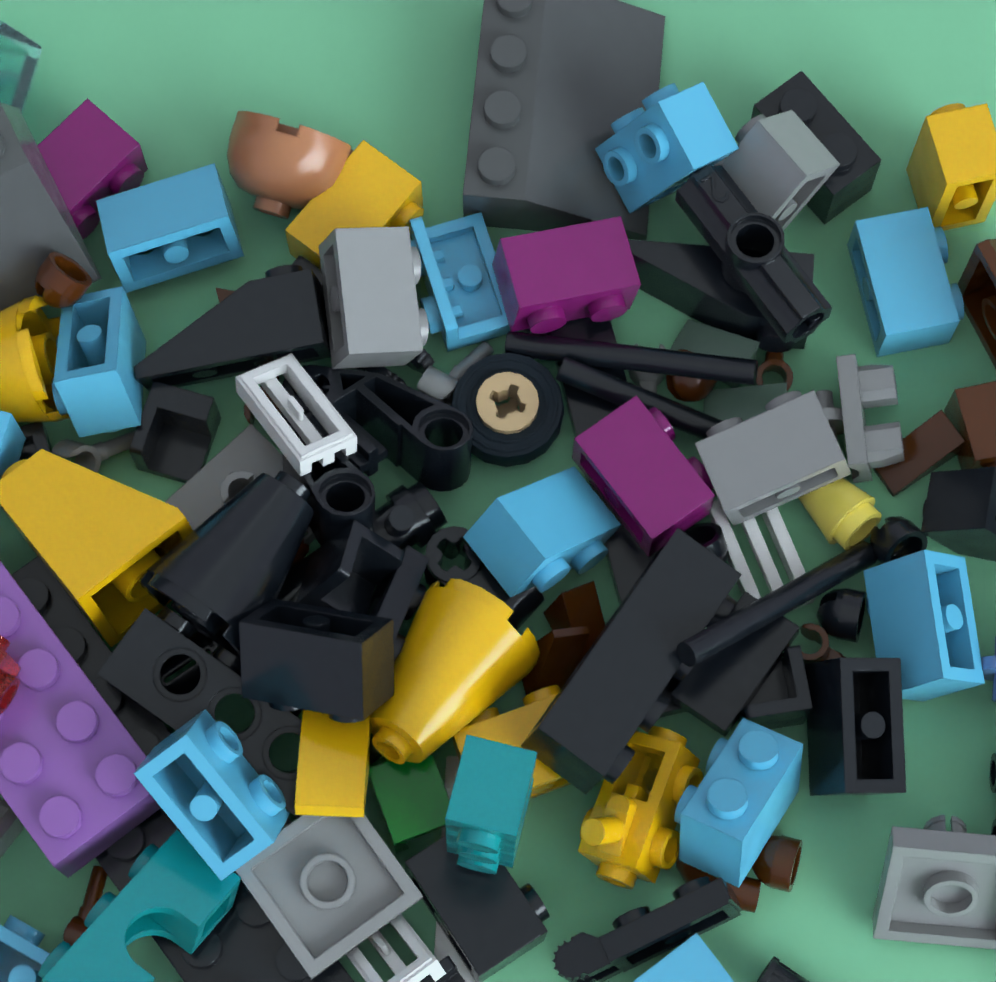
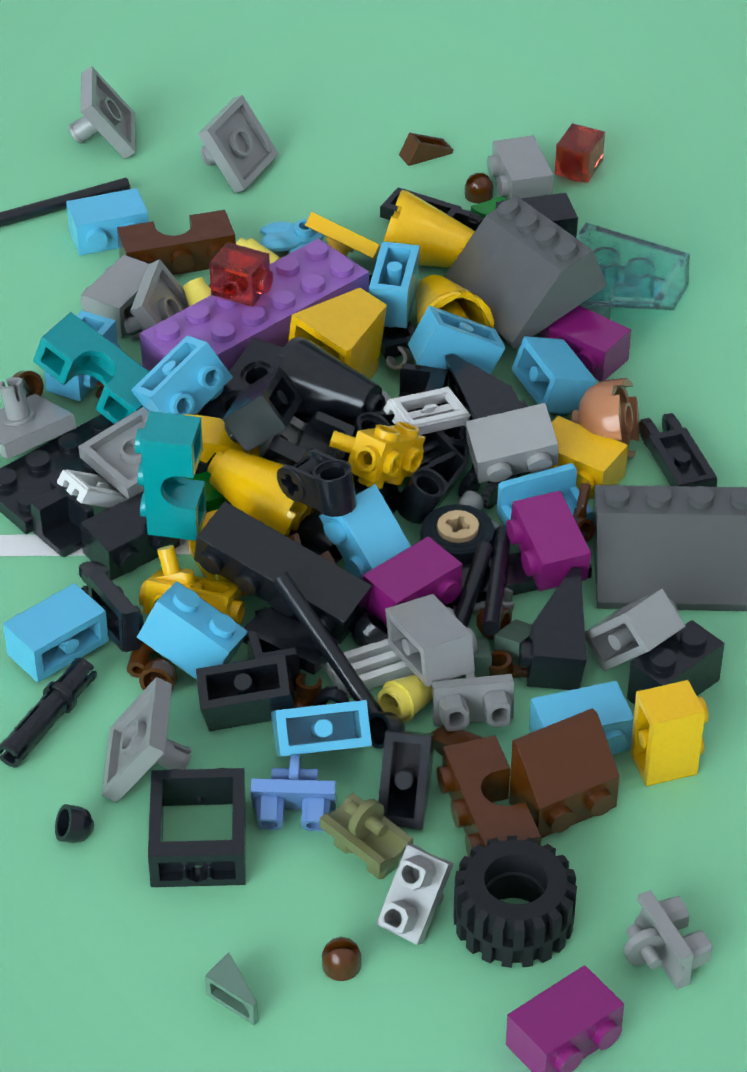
camera: 85 degrees right, 30 degrees down
(61, 281) = (502, 317): reddish brown hinge -> none
(352, 83) = (676, 453): none -> black hinge
(424, 482) = (382, 453): none -> yellow brick
(508, 578) = (320, 483): none -> black piece
(515, 226) = (585, 525): none -> reddish brown hand
(665, 144) = (648, 567): medium azure brick -> none
(772, 281) = (571, 609): black piece -> none

